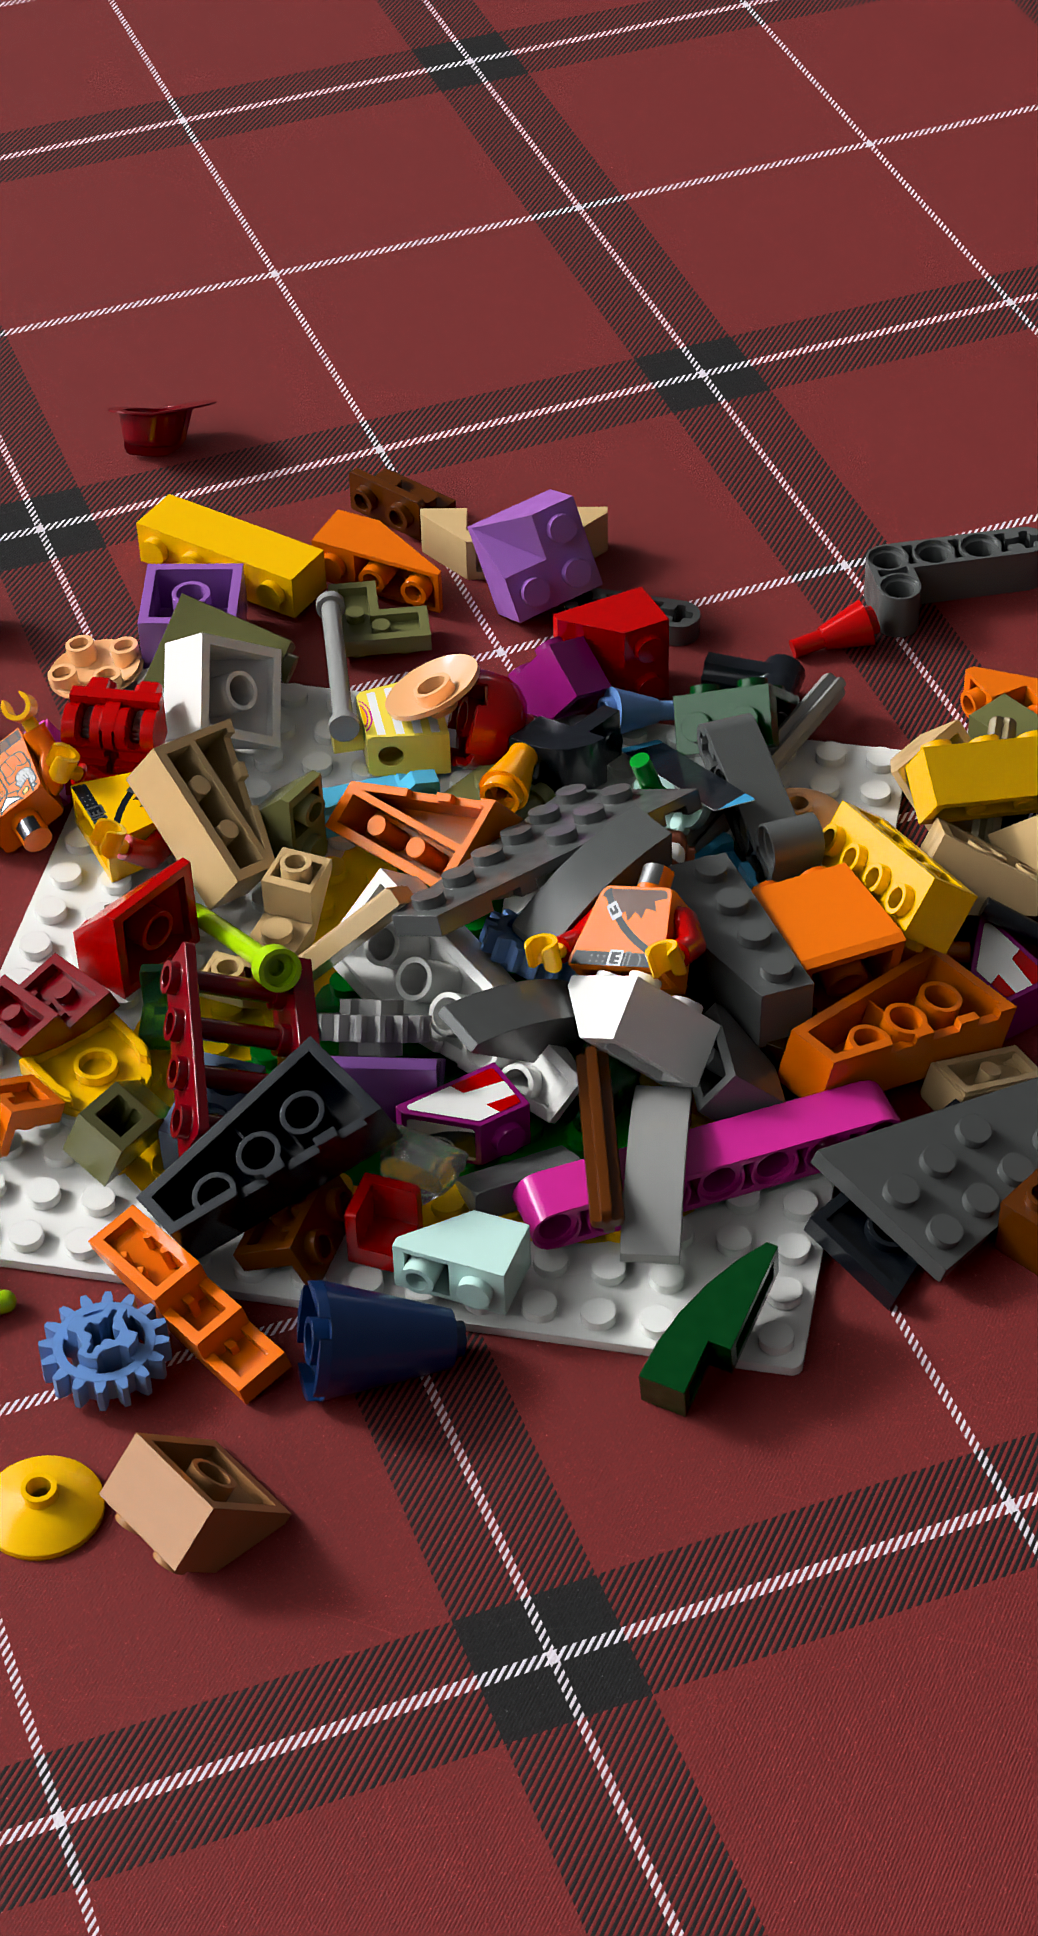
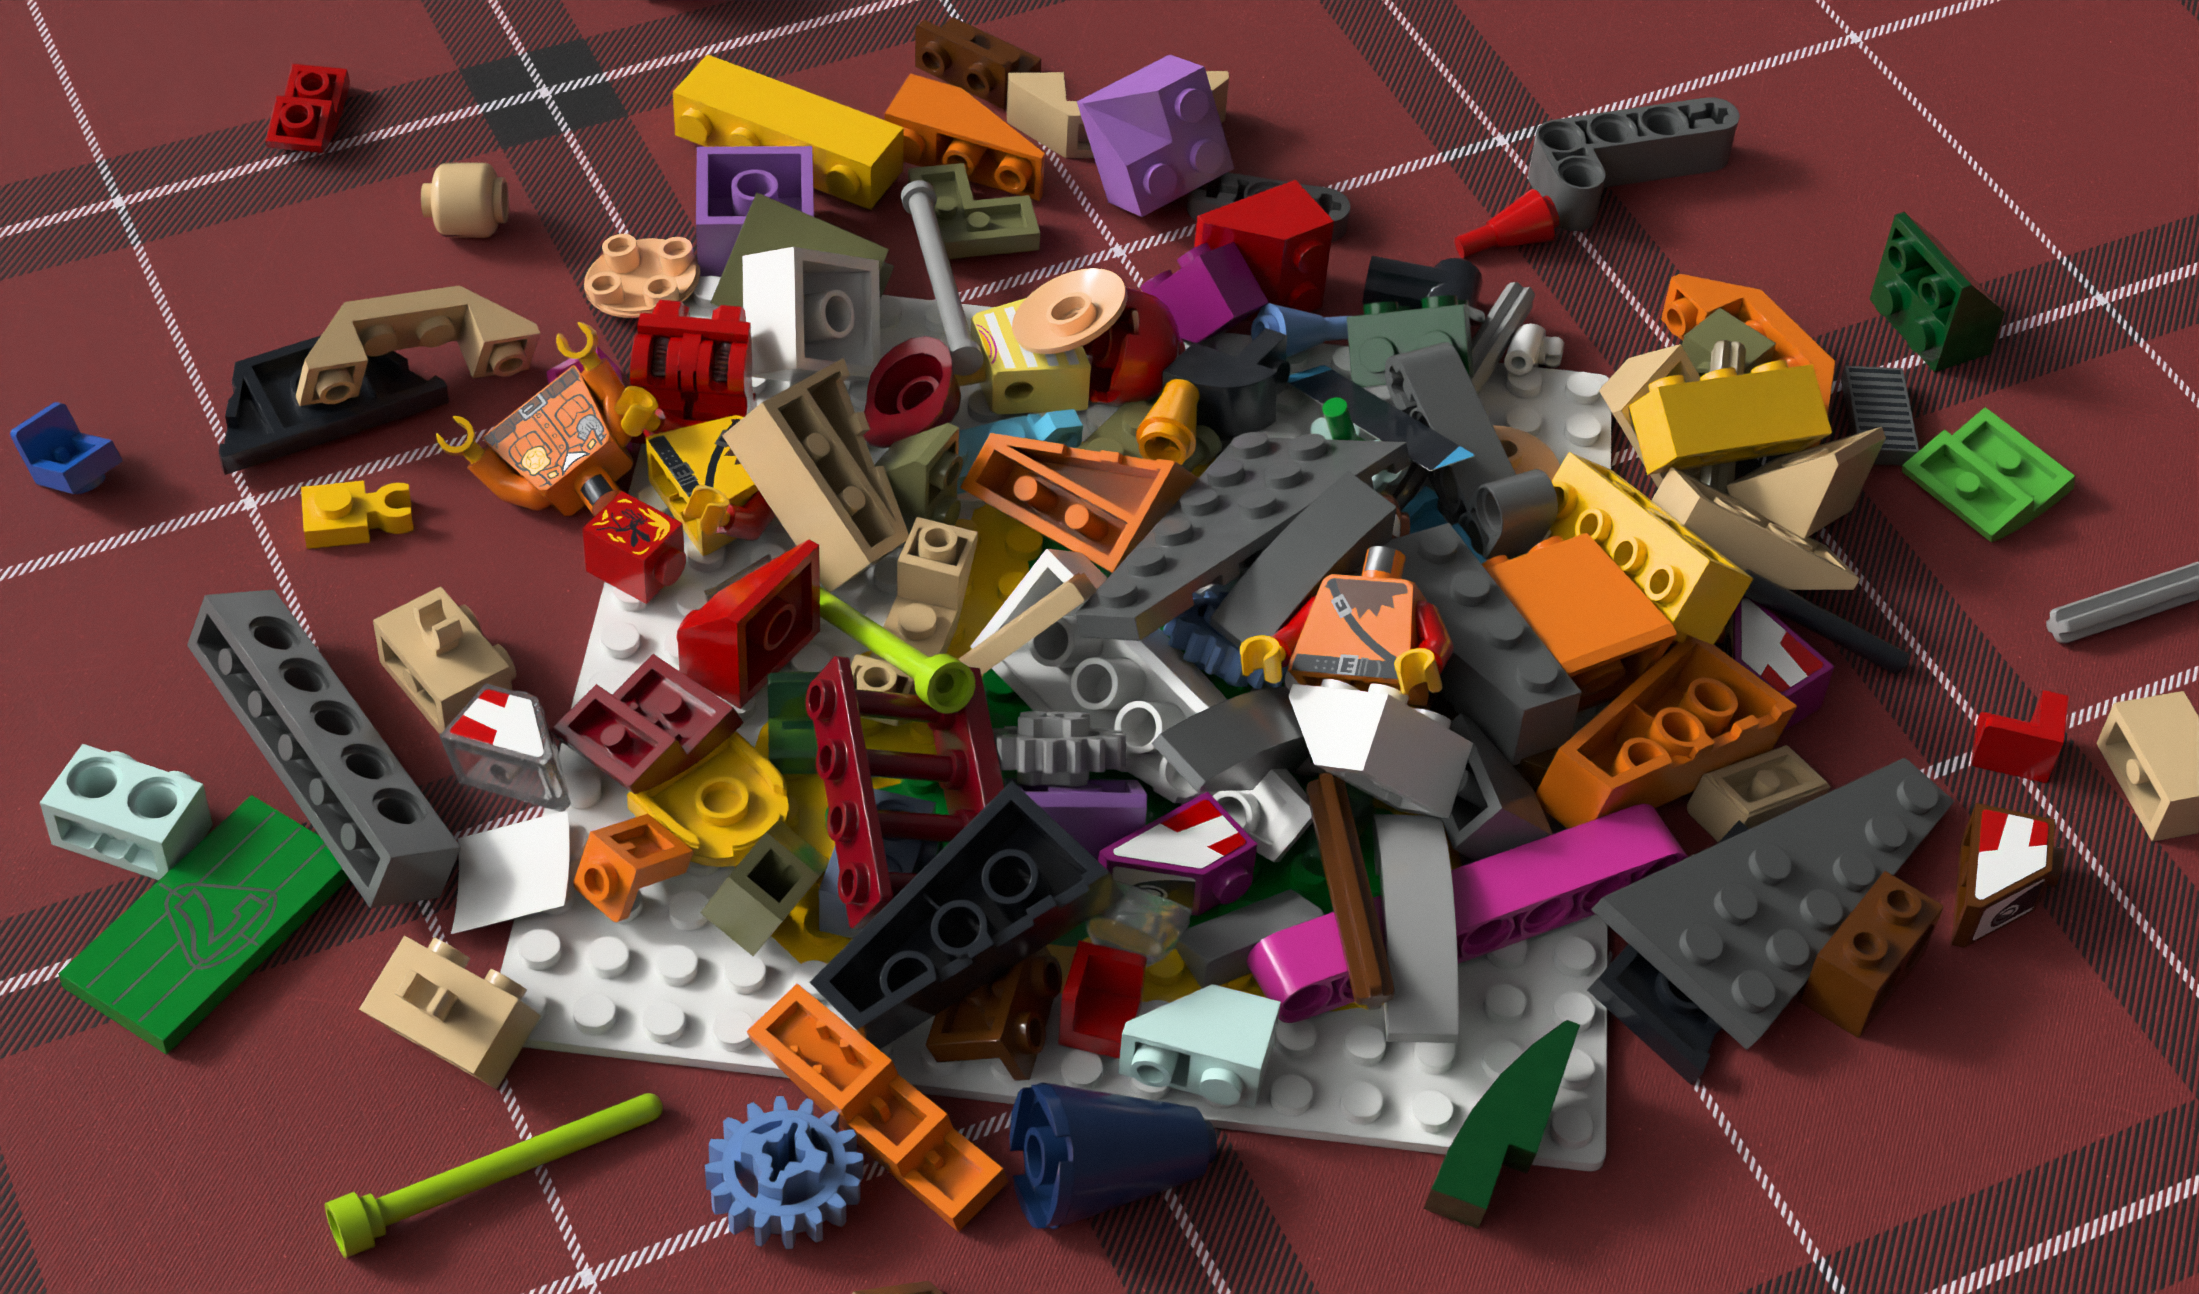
camera: 10 degrees left, 5 degrees up
(52, 871) = (634, 547): none -> red brick
(297, 748) = (911, 391): none -> dark red piece
(840, 726) = (1532, 347): none -> white arm

